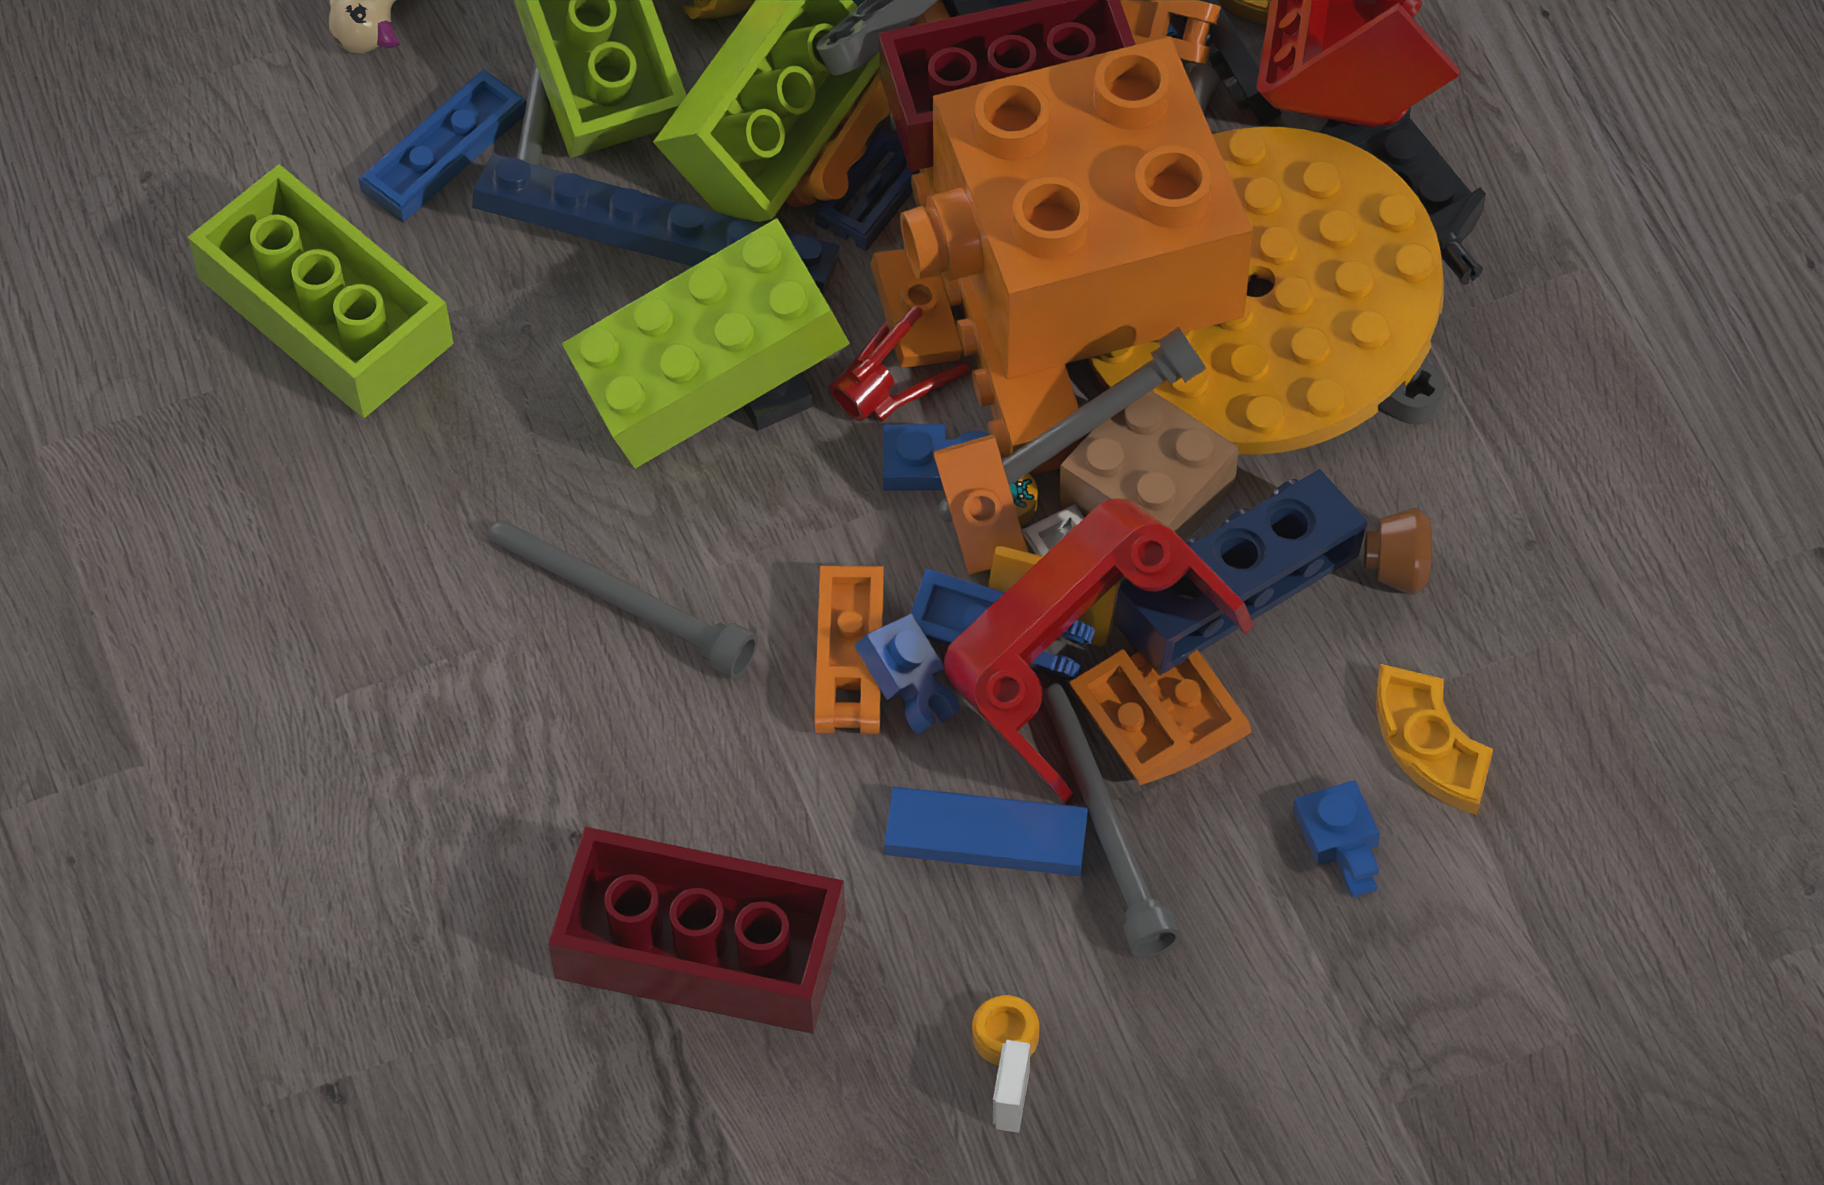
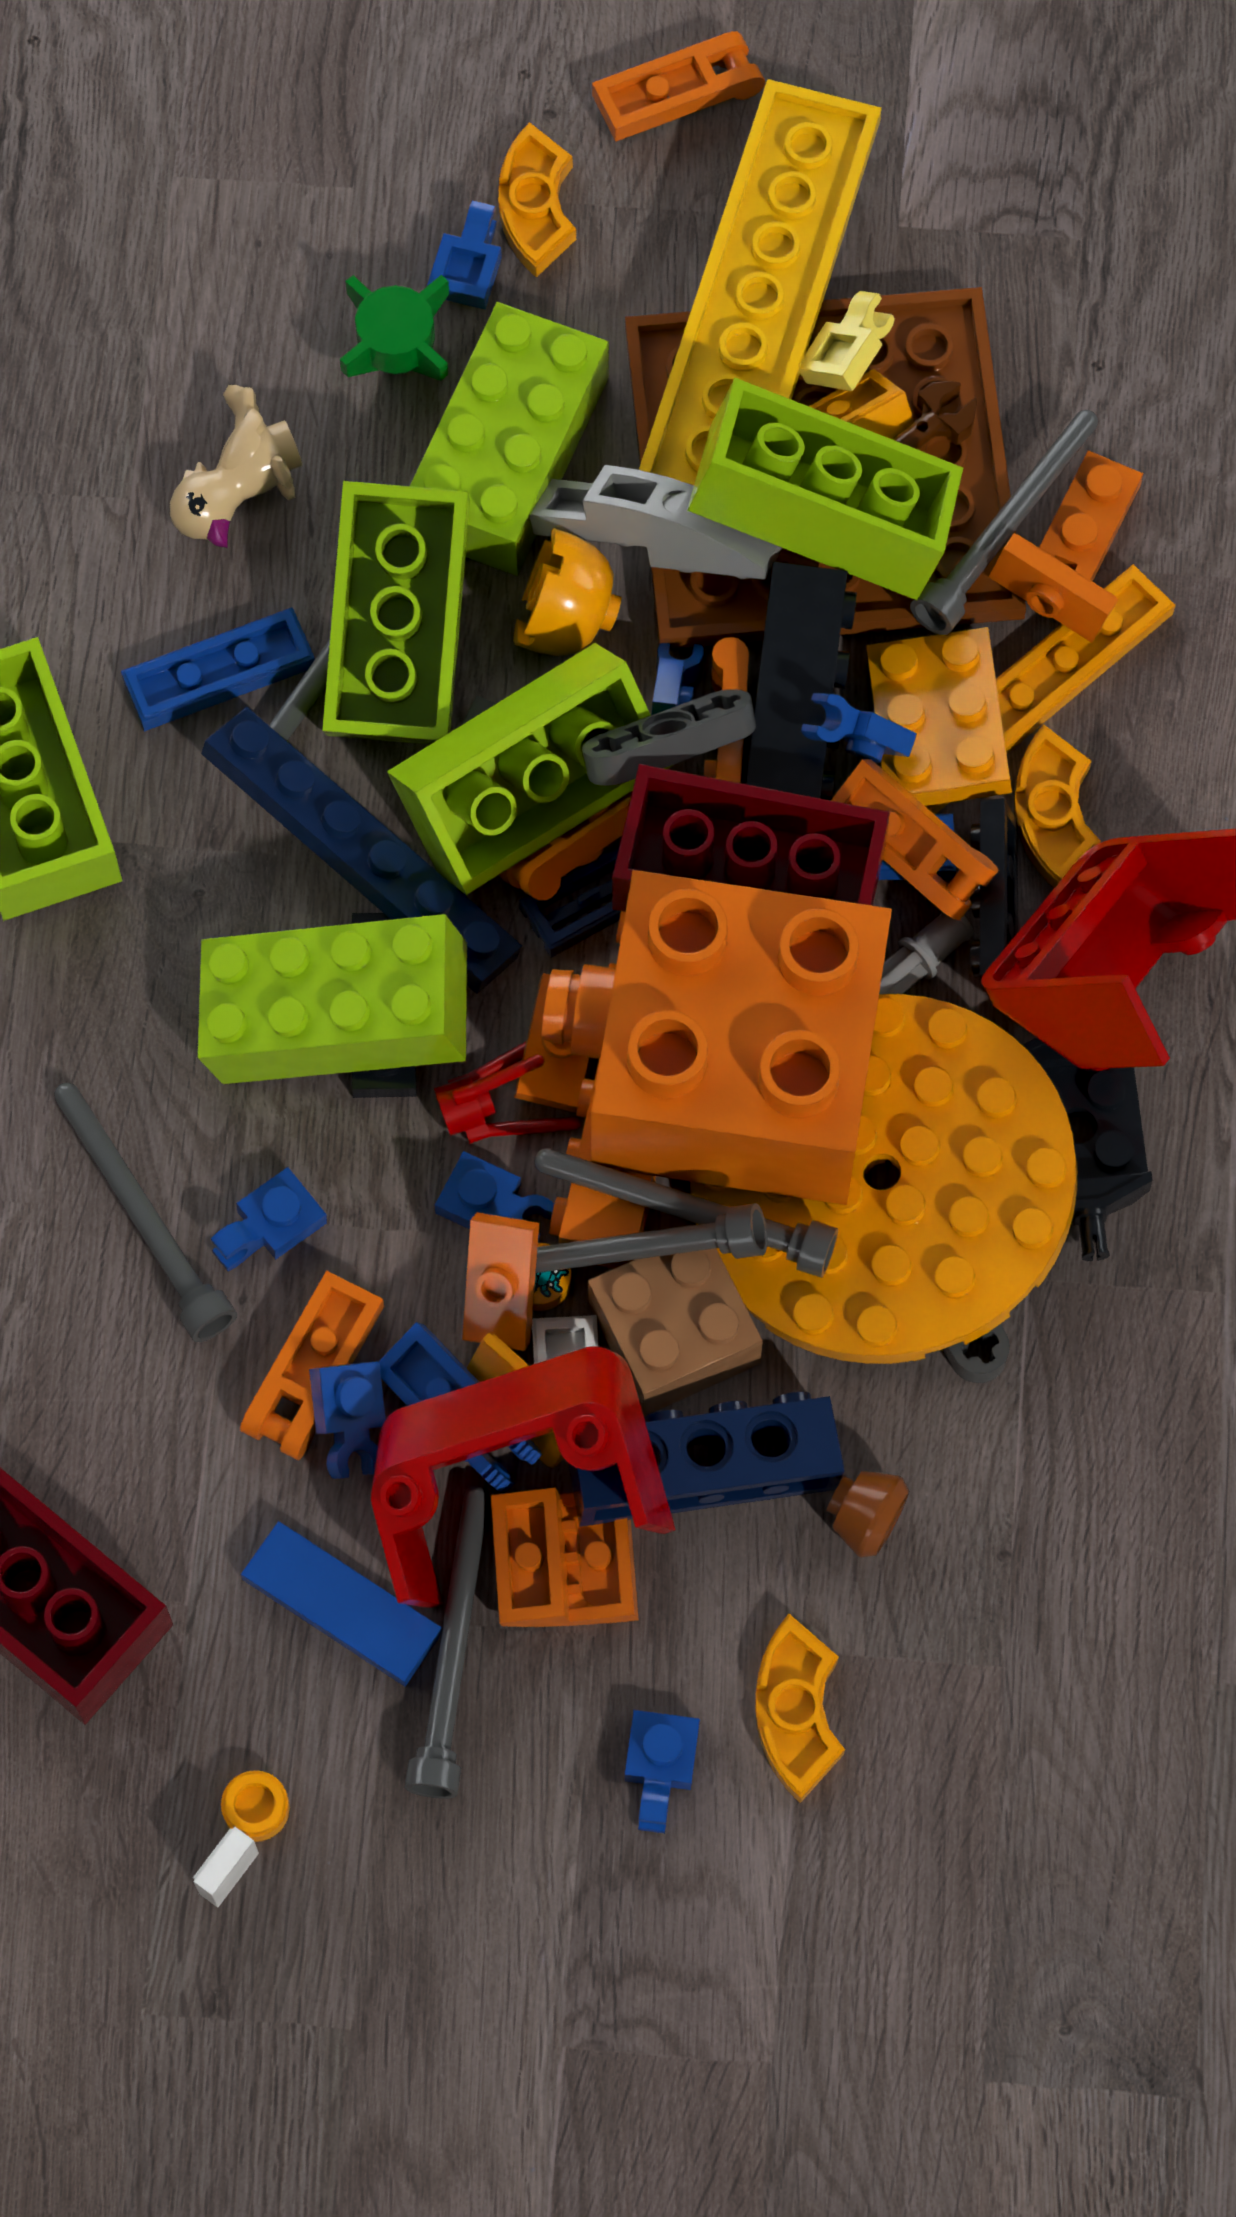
camera: 25 degrees right, 10 degrees up
(743, 550) = (274, 1217): none -> blue plate
(1231, 355) = (805, 1245): none -> dark grey piece

